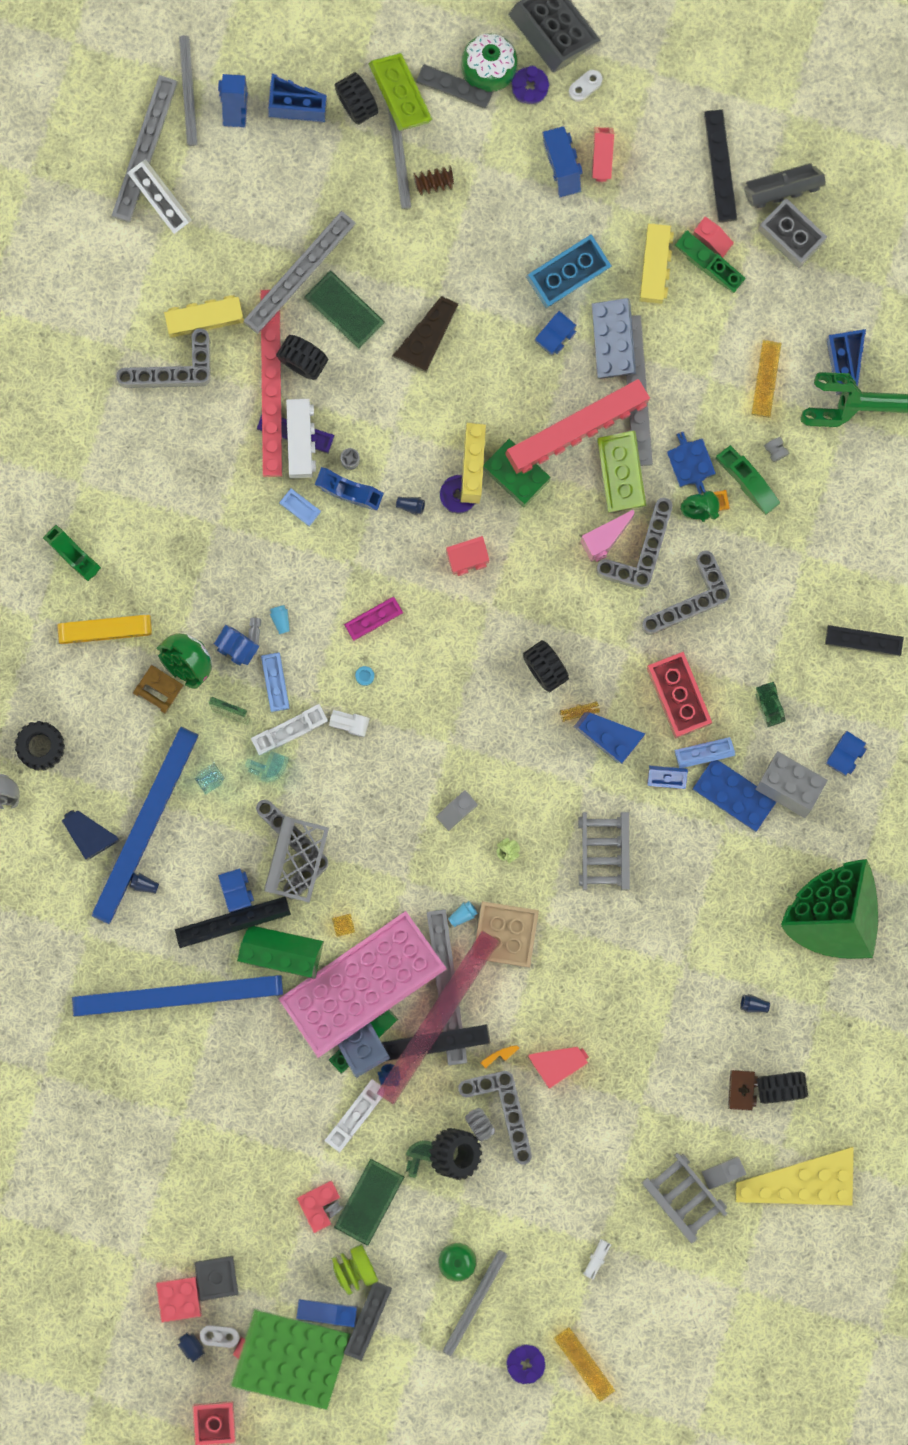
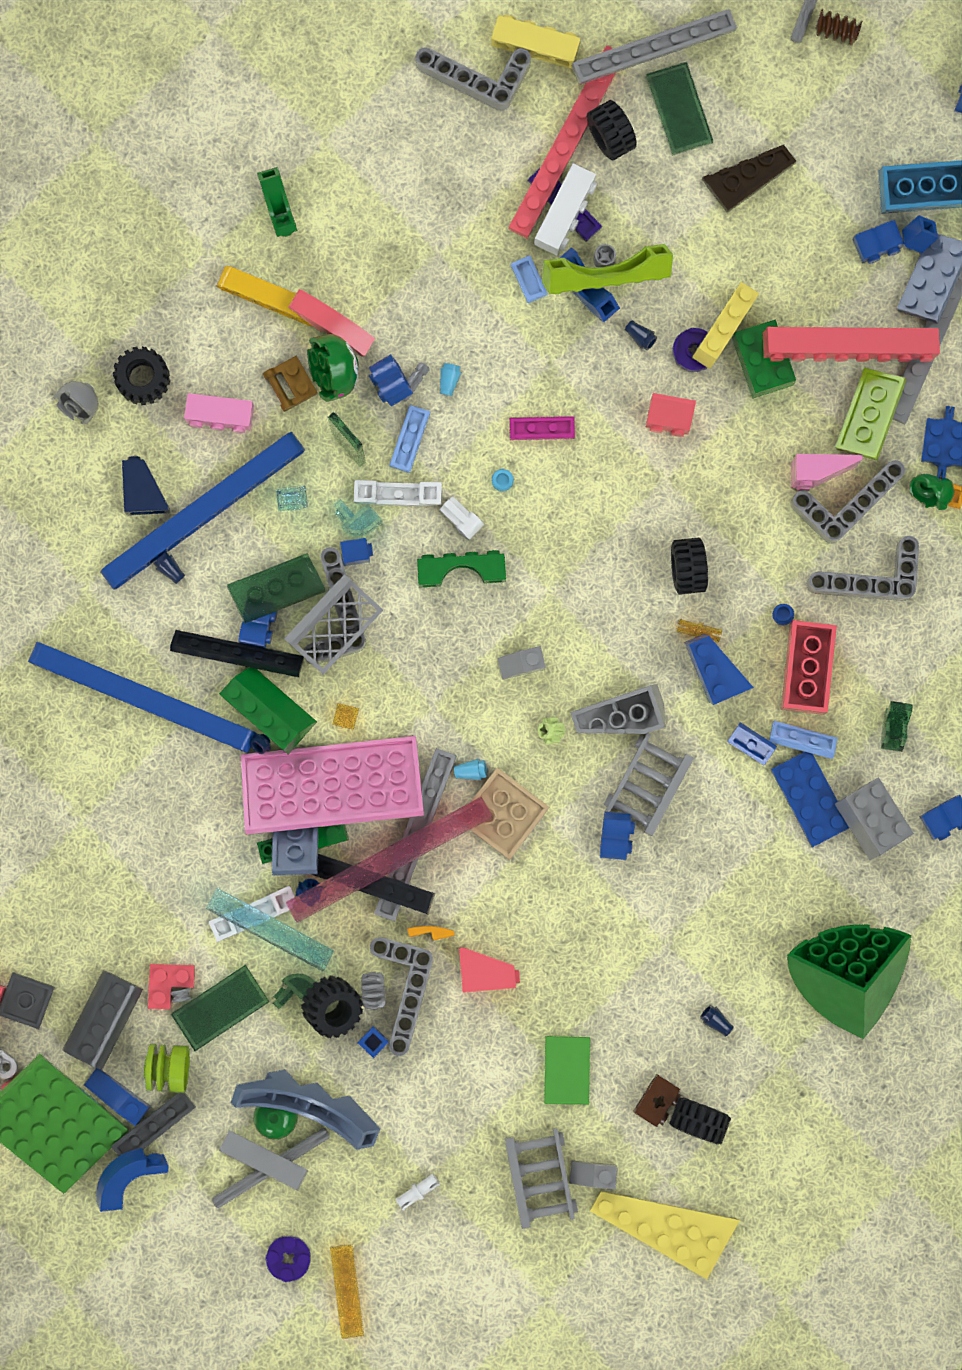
camera: 30 degrees right, 0 degrees up
(116, 742) = (219, 412): none -> bright pink brick
(165, 624) = (330, 321): none -> coral slope
(235, 855) = (276, 588): none -> clear green tile
(282, 793) = (356, 551): none -> blue brick
(283, 1260) = (102, 1020): none -> dark grey container
(289, 981) = (260, 743): none -> dark blue plate
(363, 1368) = (123, 1171): none -> blue arch
(375, 1121) = (270, 929): none -> clear light blue plate
(386, 448) = (648, 264): none -> lime arch
(391, 749) = (488, 566): none -> green arch
(466, 1299) = (263, 1160): none -> light grey tile
(480, 1234) = (312, 1101): none -> sand blue arch
(501, 1163) = (373, 1042): none -> blue brick
(564, 802) = (628, 713): none -> light grey wedge
(585, 311) = (920, 234): none -> blue brick
(601, 904) = (615, 836): none -> blue brick
(637, 664) = (783, 614): none -> blue plate
(660, 1104) = (567, 1070): none -> bright green tile

